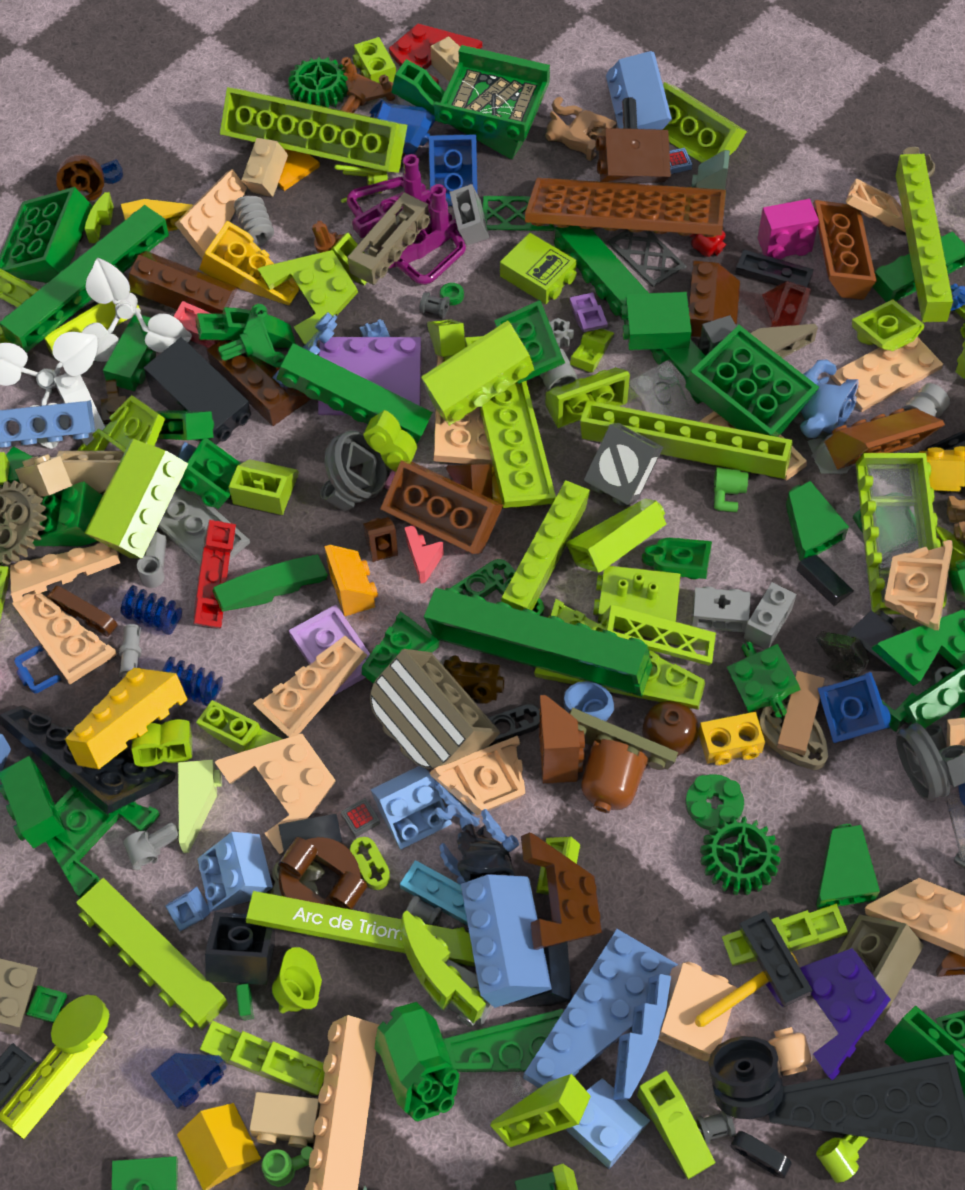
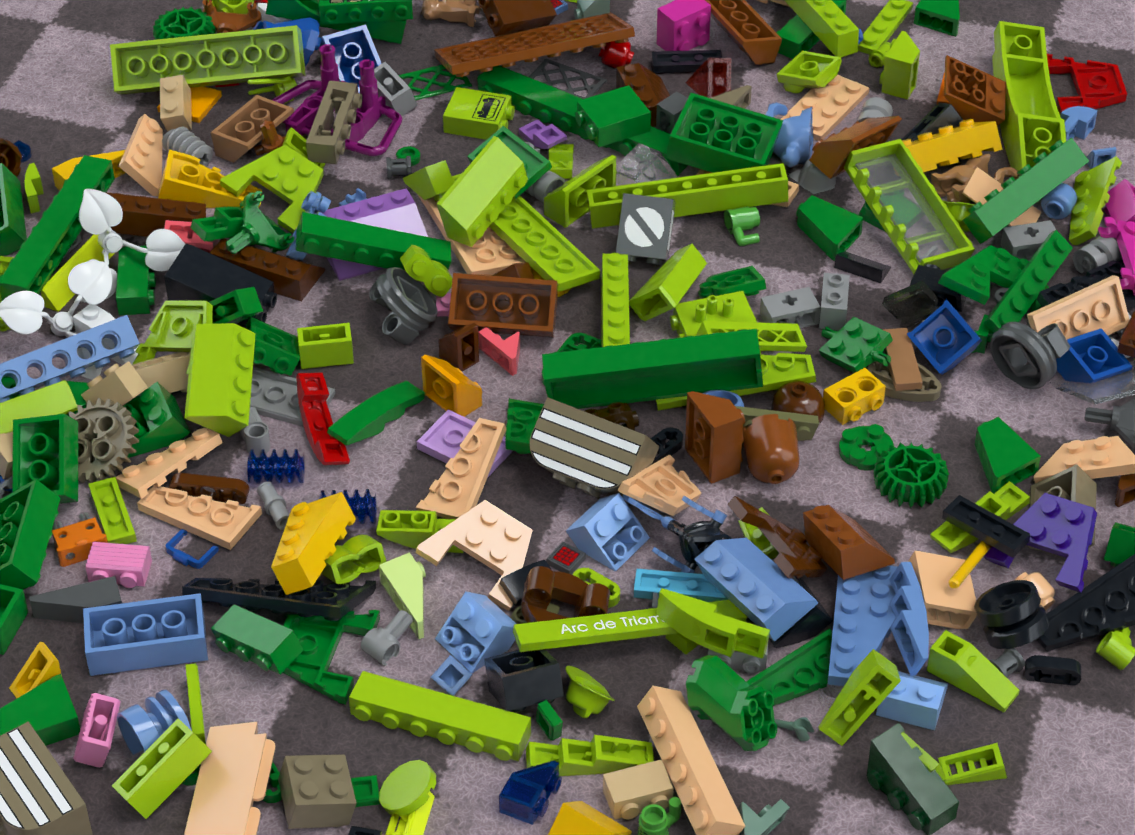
camera: 25 degrees left, 15 degrees down
(113, 402) = (139, 325): dark brown plate -> none
(328, 205) = (243, 129): none -> medium nougat slope
(474, 1108) = (800, 726): none -> sand green hand
(630, 915) = (843, 542): none -> dark orange slope
(919, 584) = (948, 233): light nougat wing -> none

